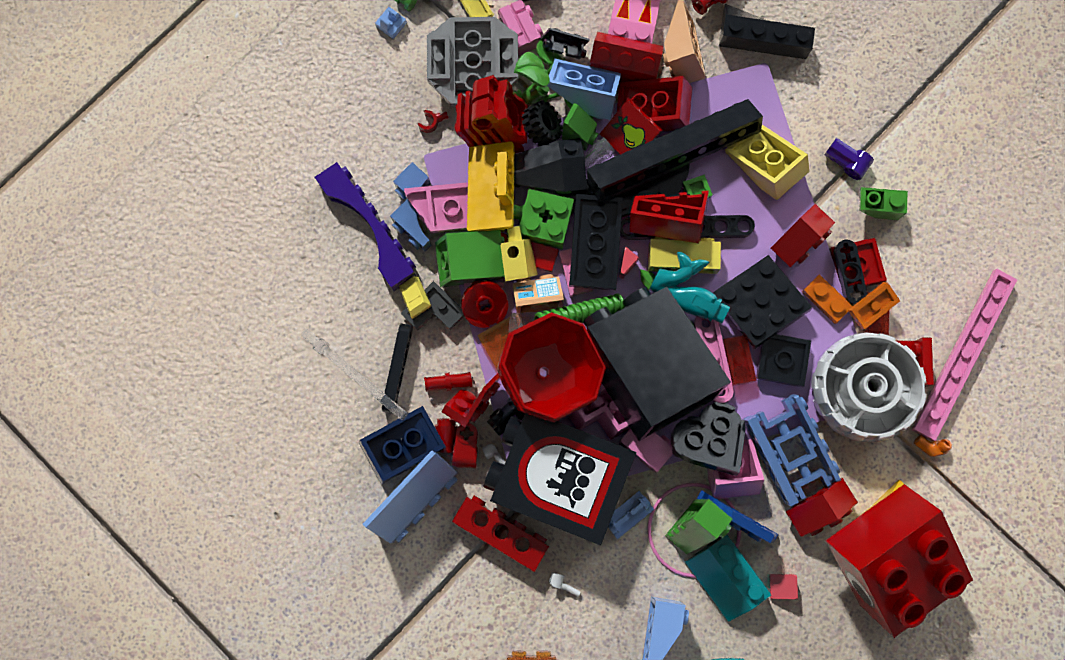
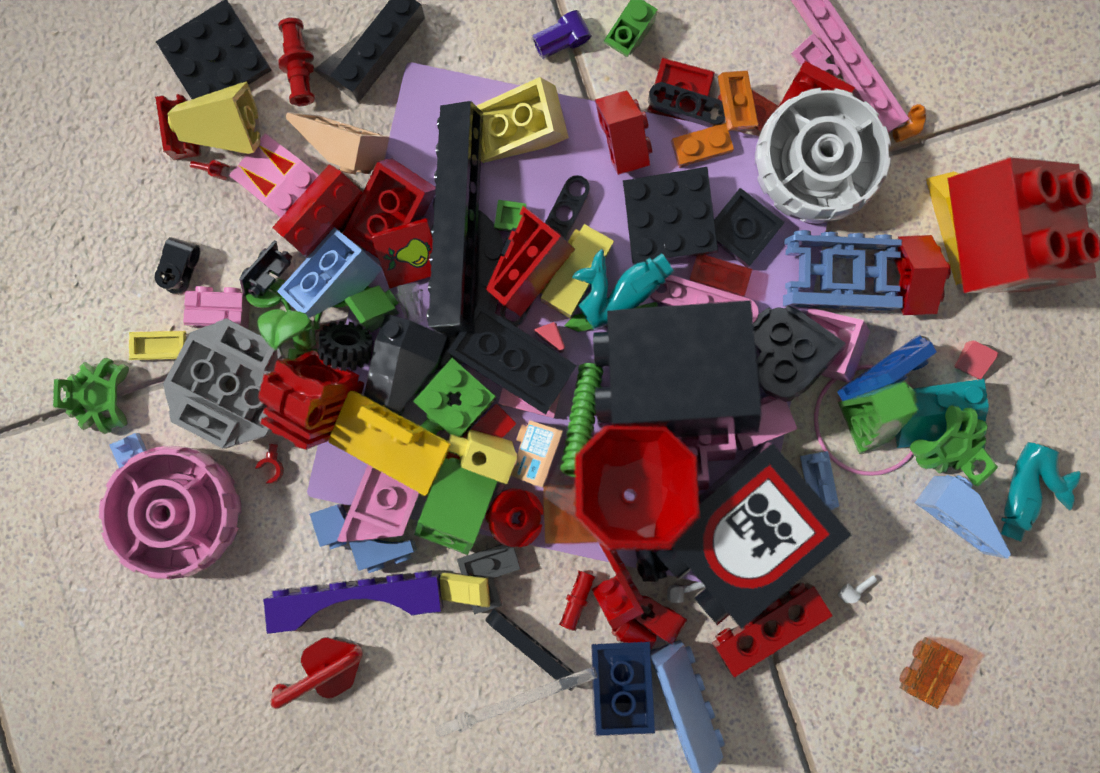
camera: 65 degrees left, 5 degrees up
(311, 234) = (329, 669): none -> red piece
(369, 91) = (200, 505): none -> bright pink wheel
(709, 602) = (957, 447): none -> bright green piece
(941, 346) = (815, 53): none -> bright pink plate

